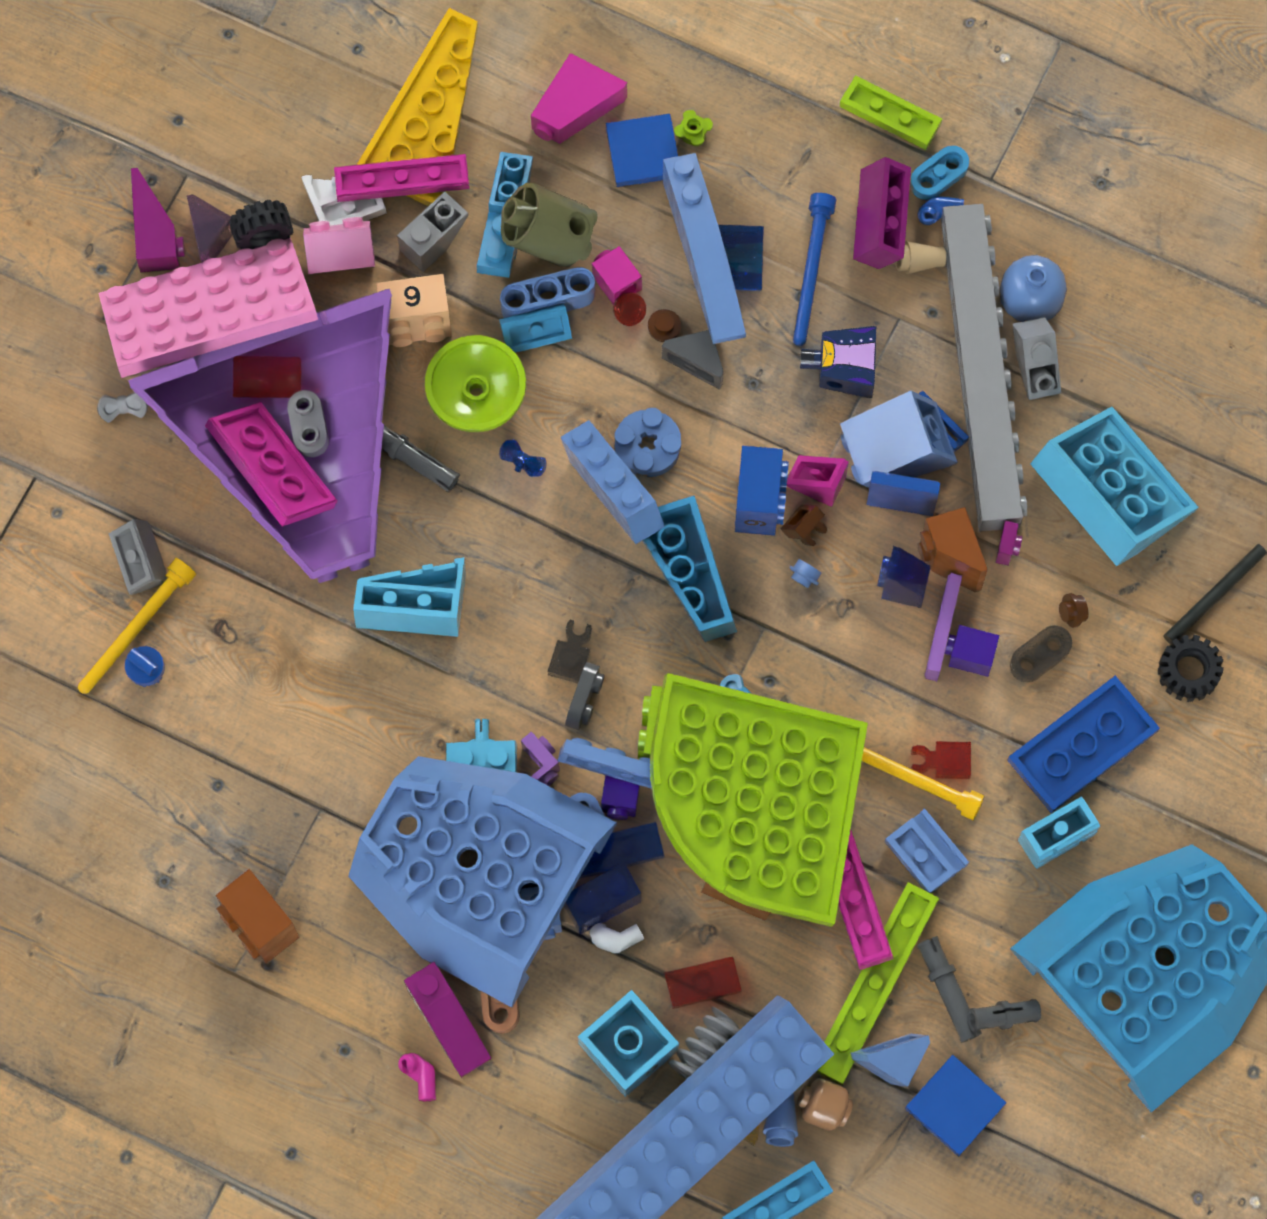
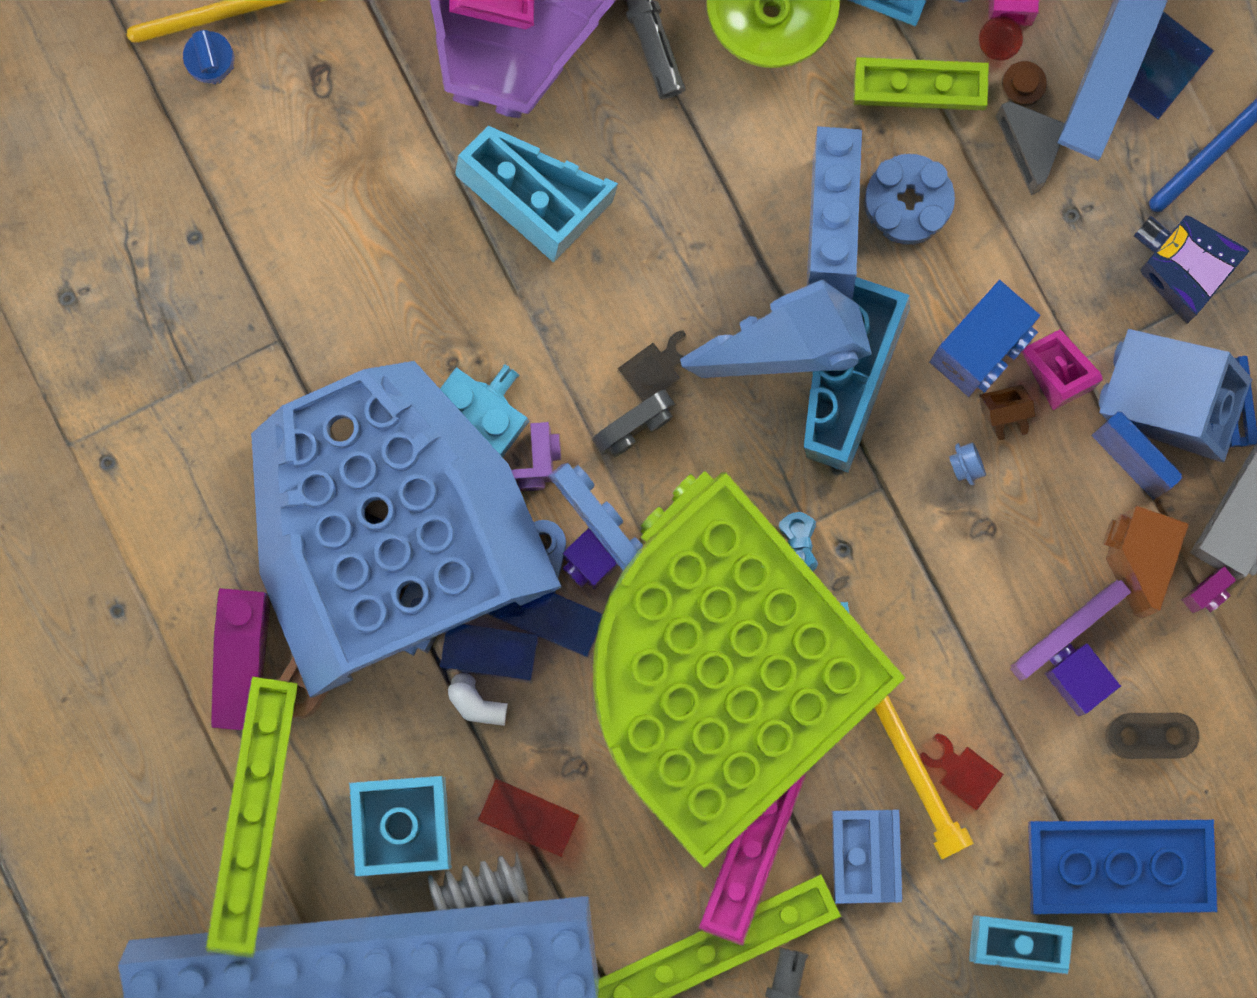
camera: 35 degrees right, 10 degrees up
(258, 917) = (120, 408): dark orange brick -> none
(421, 1072) = (174, 692): dark pink arm -> none
(532, 465) = (758, 105): clear blue piece -> none
(534, 1100) = (252, 818): none -> lime plate
(602, 369) = (921, 83): none -> lime plate
(651, 559) = (803, 333): none -> medium blue wedge
(903, 578) = (1067, 548): clear blue slope -> none
(1073, 609) = (1224, 715): reddish brown plate -> none

